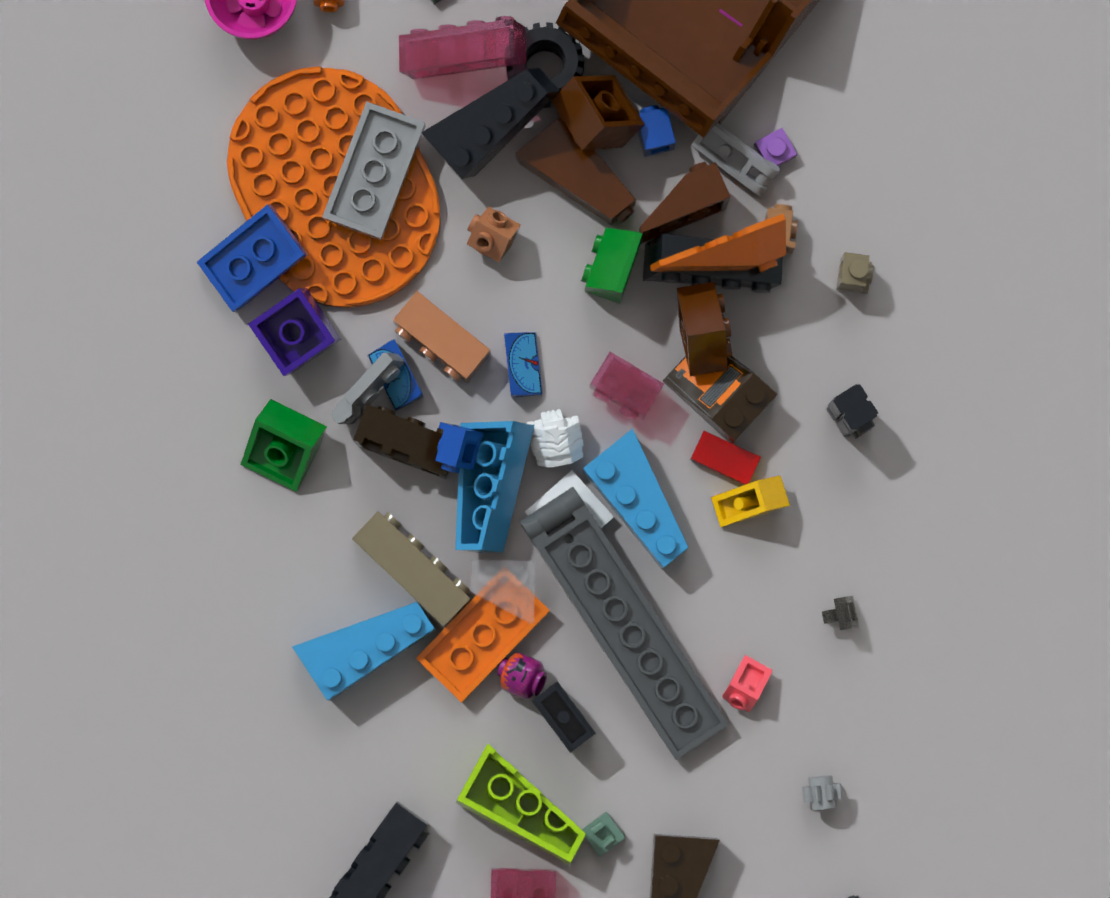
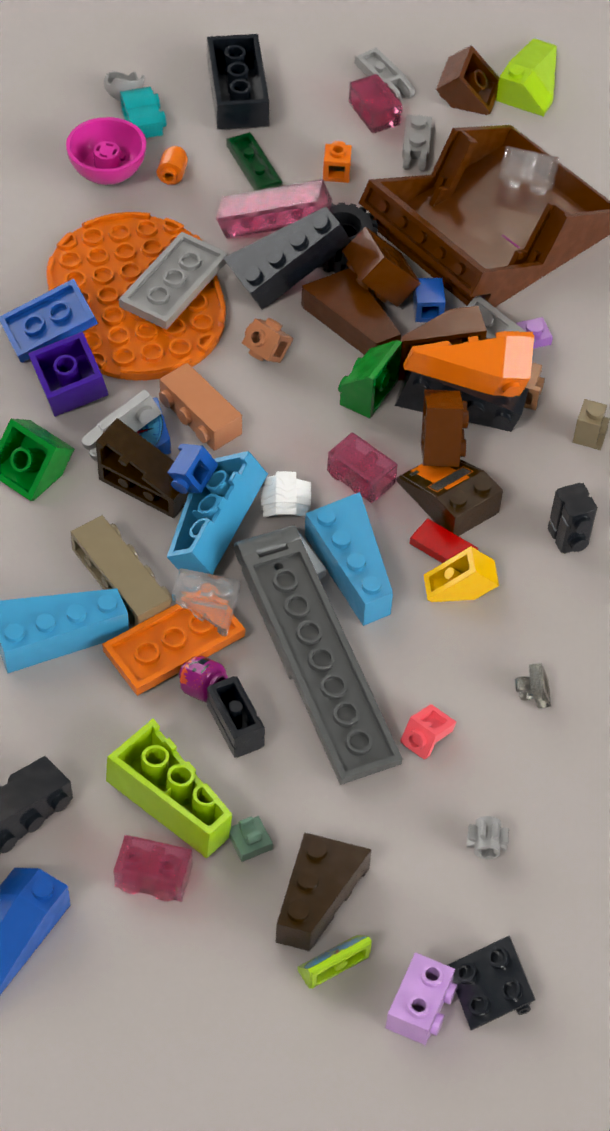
camera: 10 degrees right, 30 degrees down
(523, 364) = (269, 441): slope -> none

